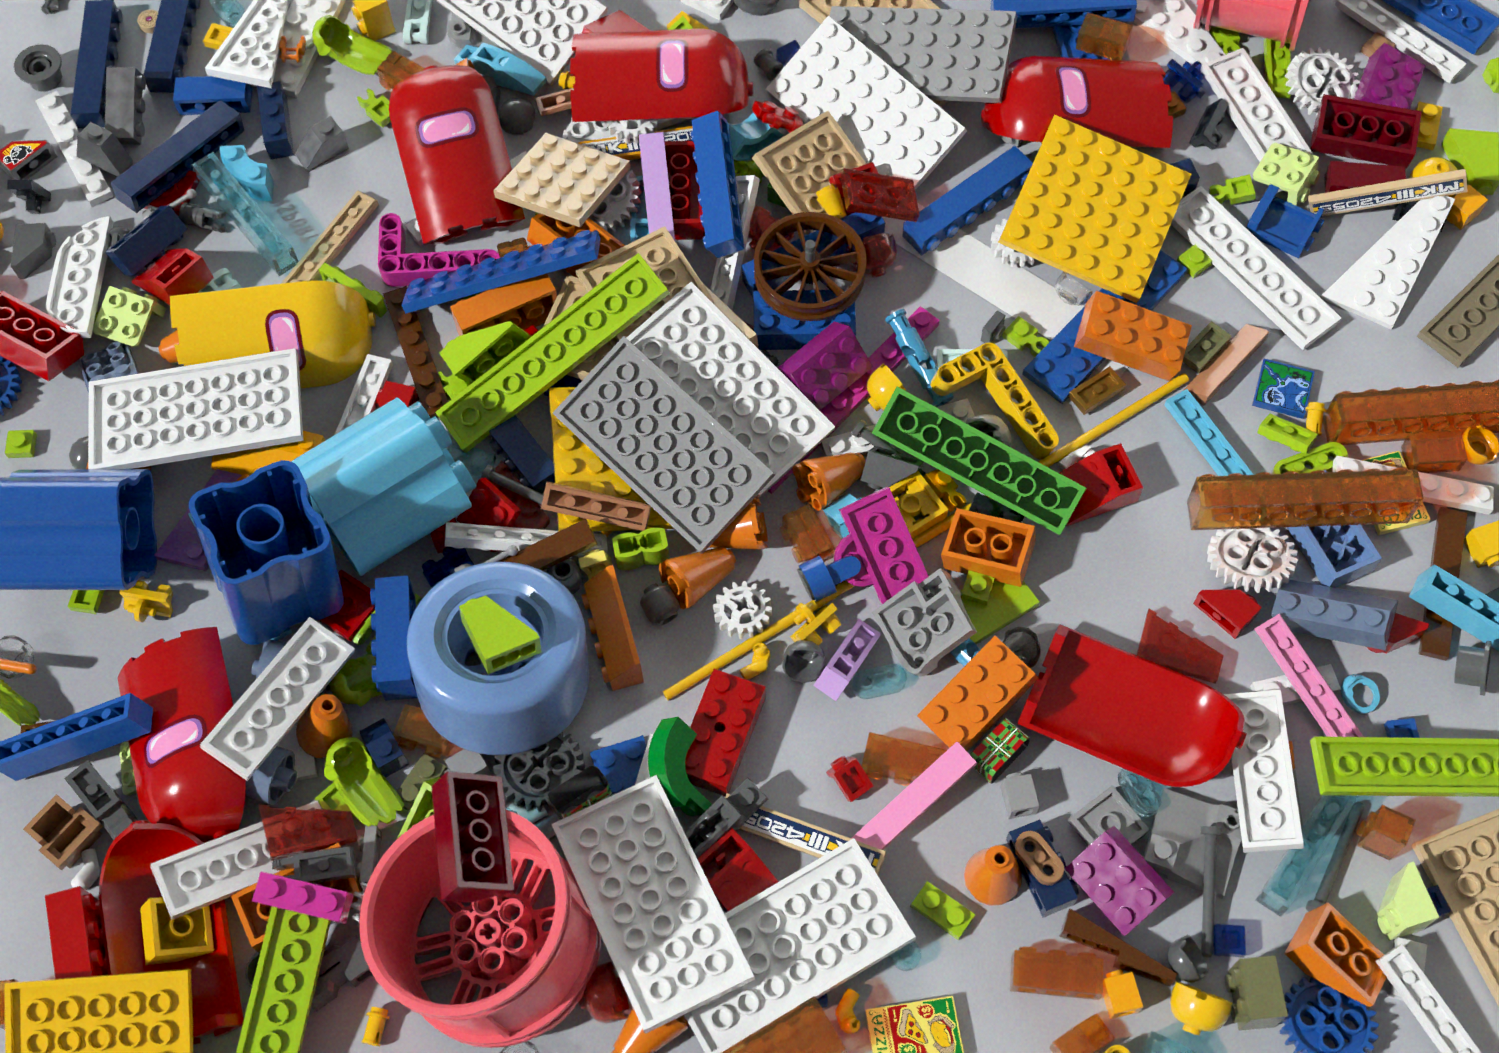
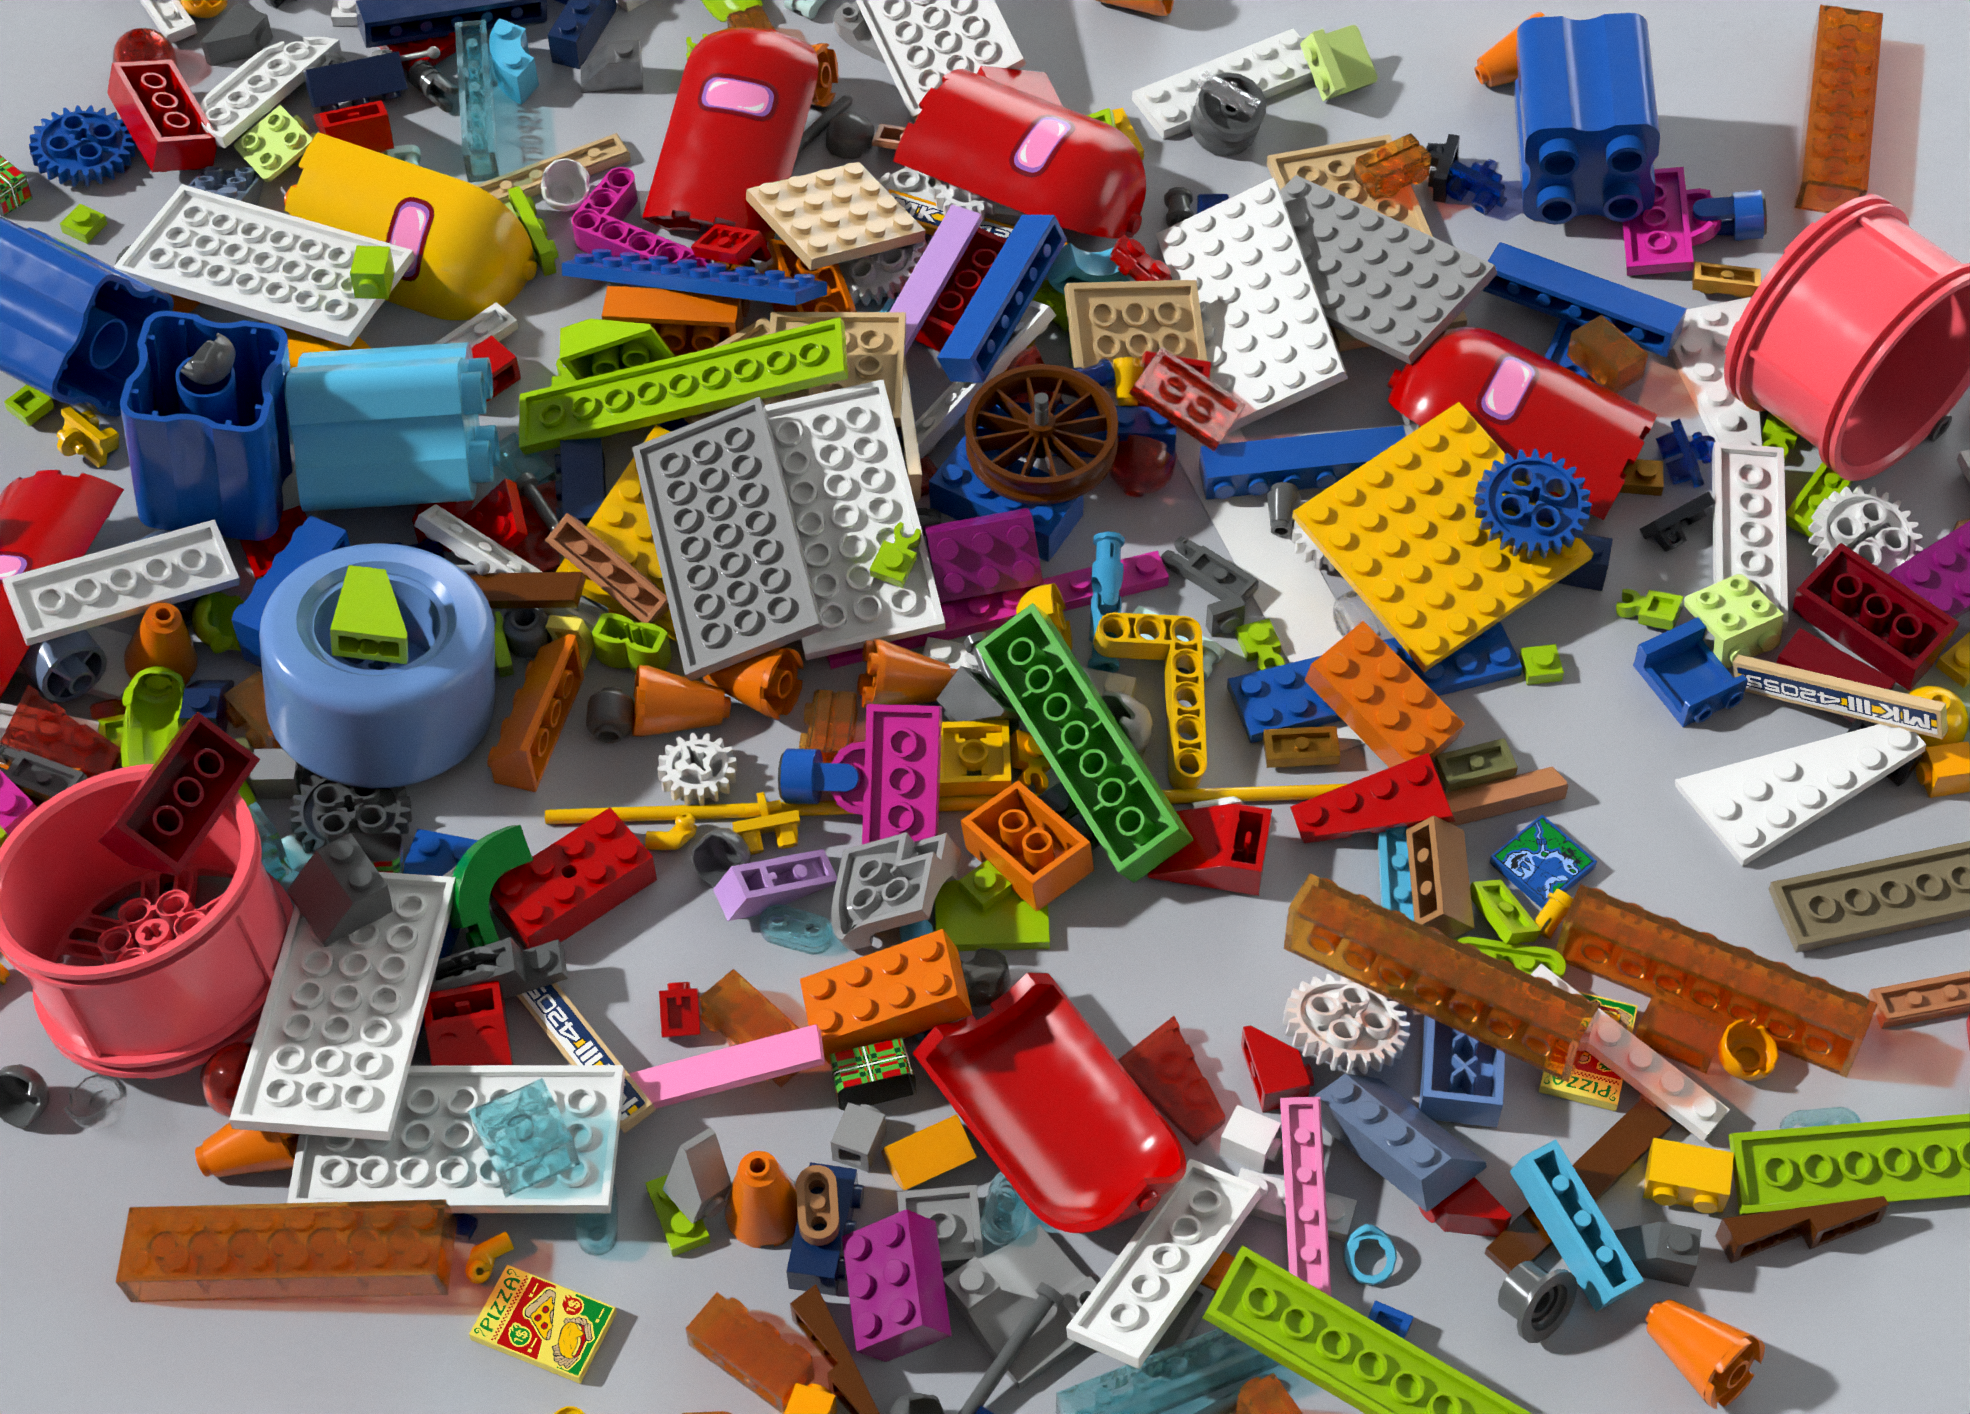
camera: 30 degrees right, 10 degrees down
(260, 512) = (211, 362): none -> dark grey hair
(286, 379) = (372, 272): none -> lime brick
(315, 786) = (107, 708): none -> clear red tile
(353, 245) = (565, 184): none -> white hair
(416, 353) = (557, 311): reddish brown plate -> none
(504, 67) = (869, 78): medium azure slope -> none
(507, 235) = (731, 245): none -> red bracket
(595, 830) = (340, 891): none -> dark grey slope
(779, 401) = (896, 559): none -> lime plate
(814, 203) = (1102, 373): none -> clear blue bush
(836, 925) = (524, 1137): none -> clear light blue brick
(954, 884) = (699, 1177): none -> light grey slope
(961, 303) = (1209, 570): none -> dark grey hinge
(976, 237) = (1281, 503): none -> dark grey cone
(1068, 781) = (928, 1153): none -> light orange brick
(1144, 161) = (1541, 477): none -> blue gear
(1179, 398) = (1375, 803): none -> red wing
(1240, 433) = (1440, 877): none -> medium nougat brick
(1247, 661) = (1251, 1139): none -> white brick
(1254, 269) = (1608, 707): white plate -> none

